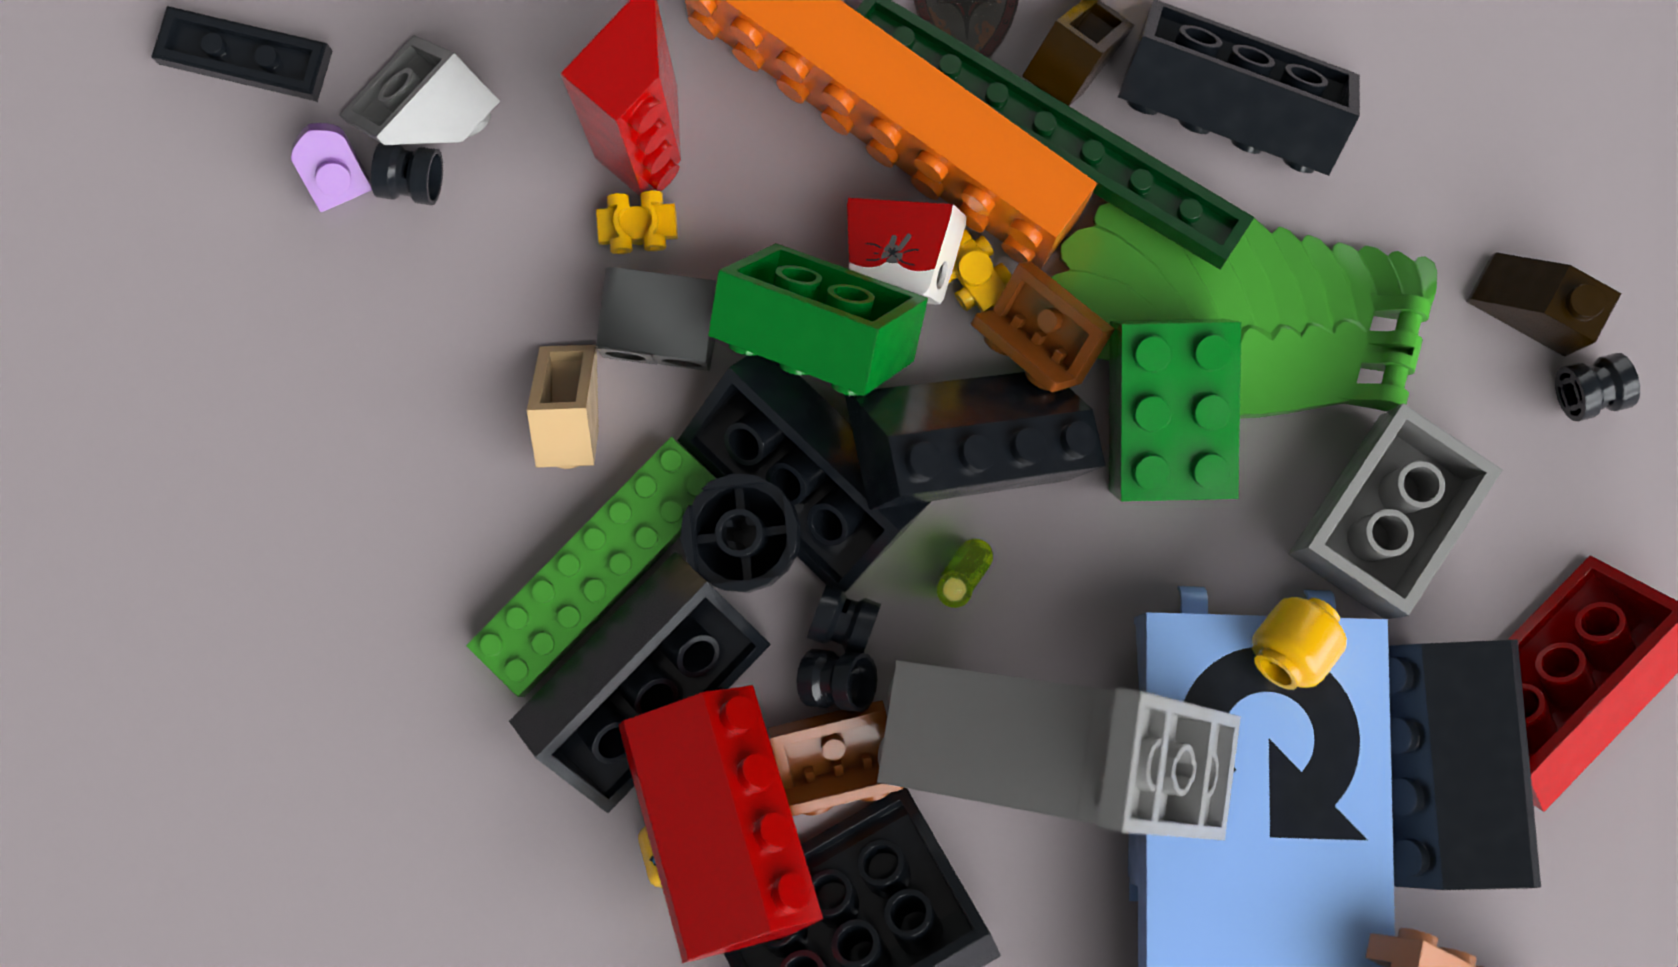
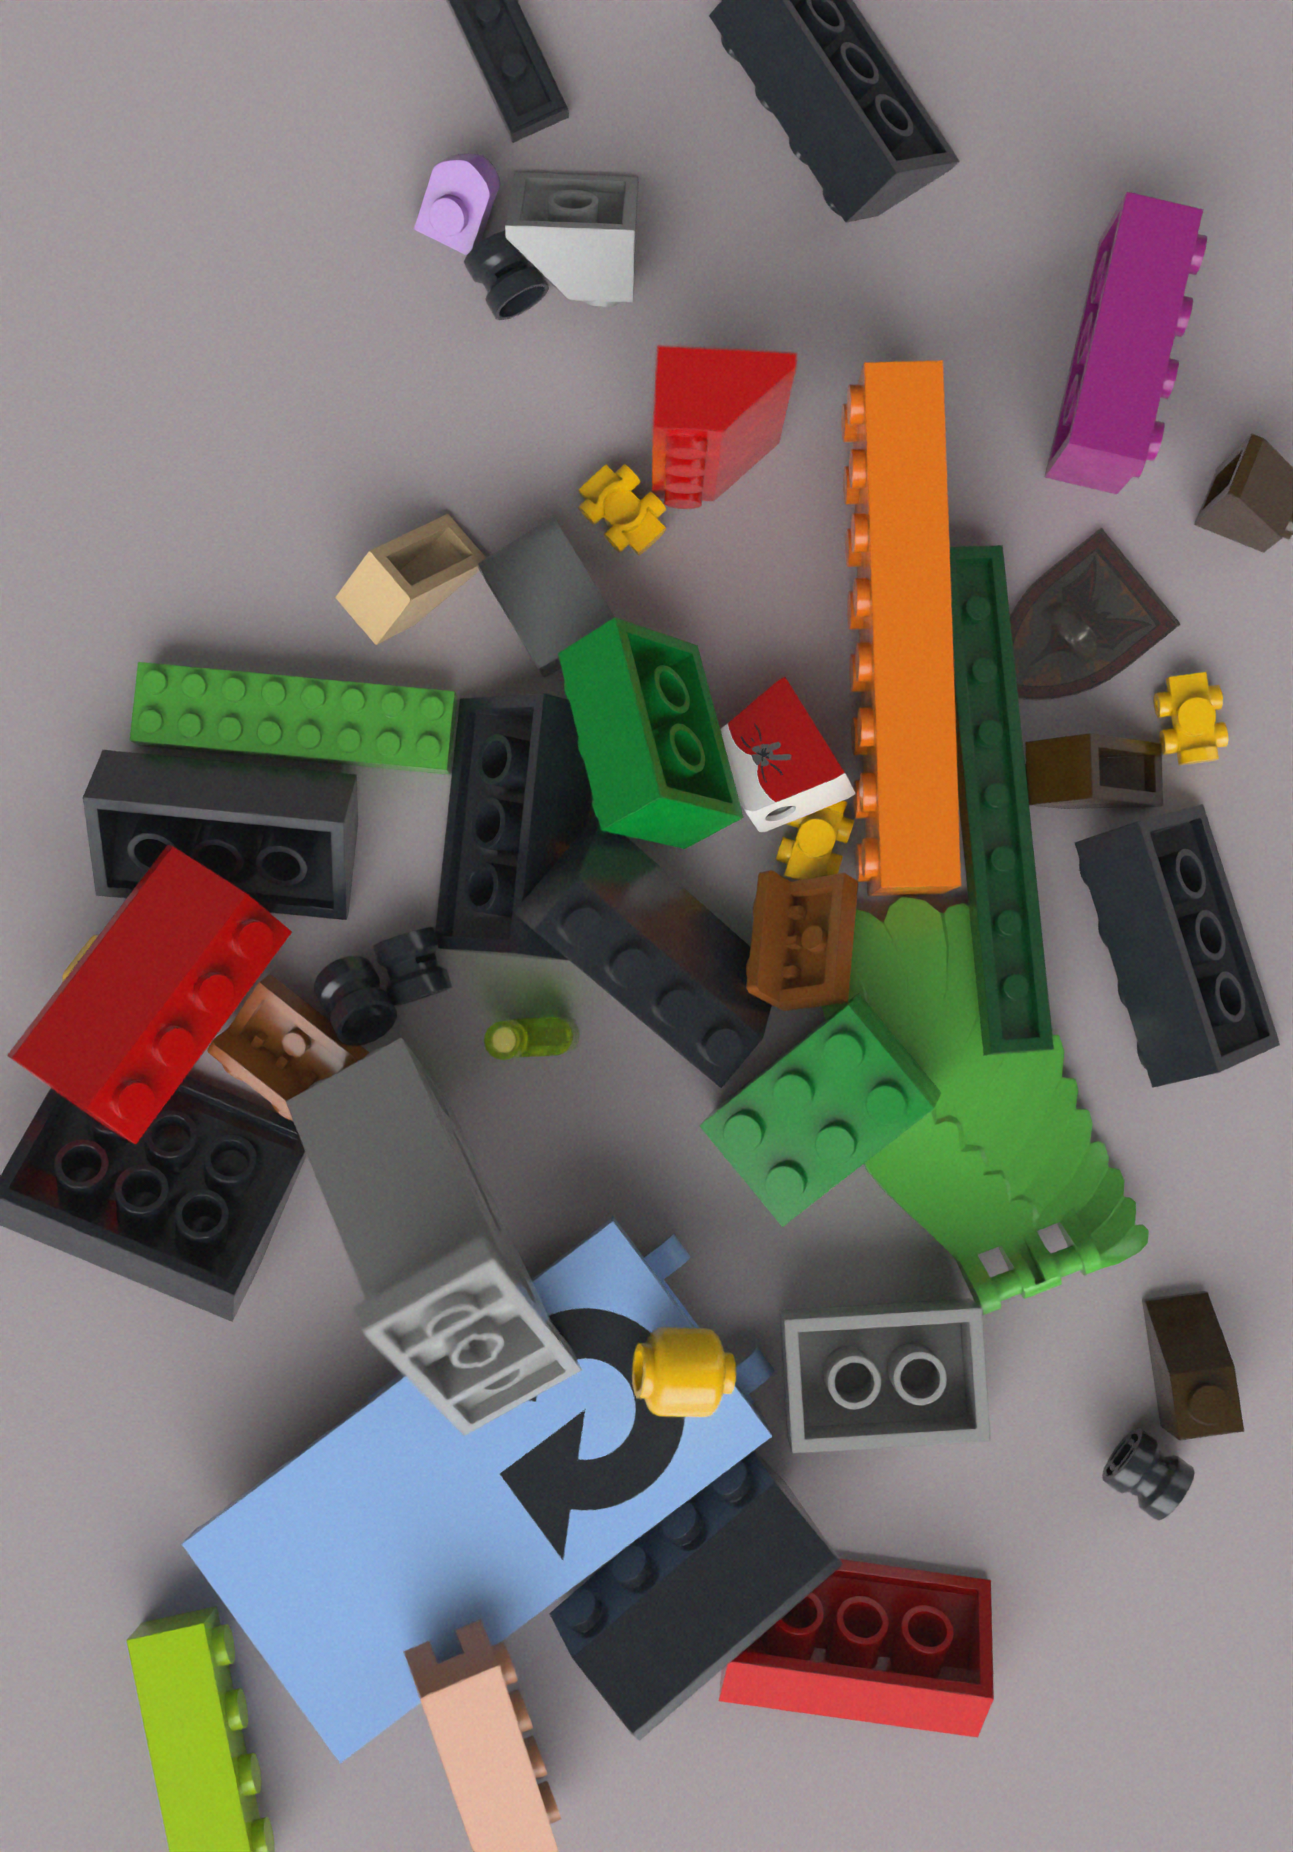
camera: 55 degrees right, 5 degrees up
(741, 533) = (411, 819): black cylinder -> none

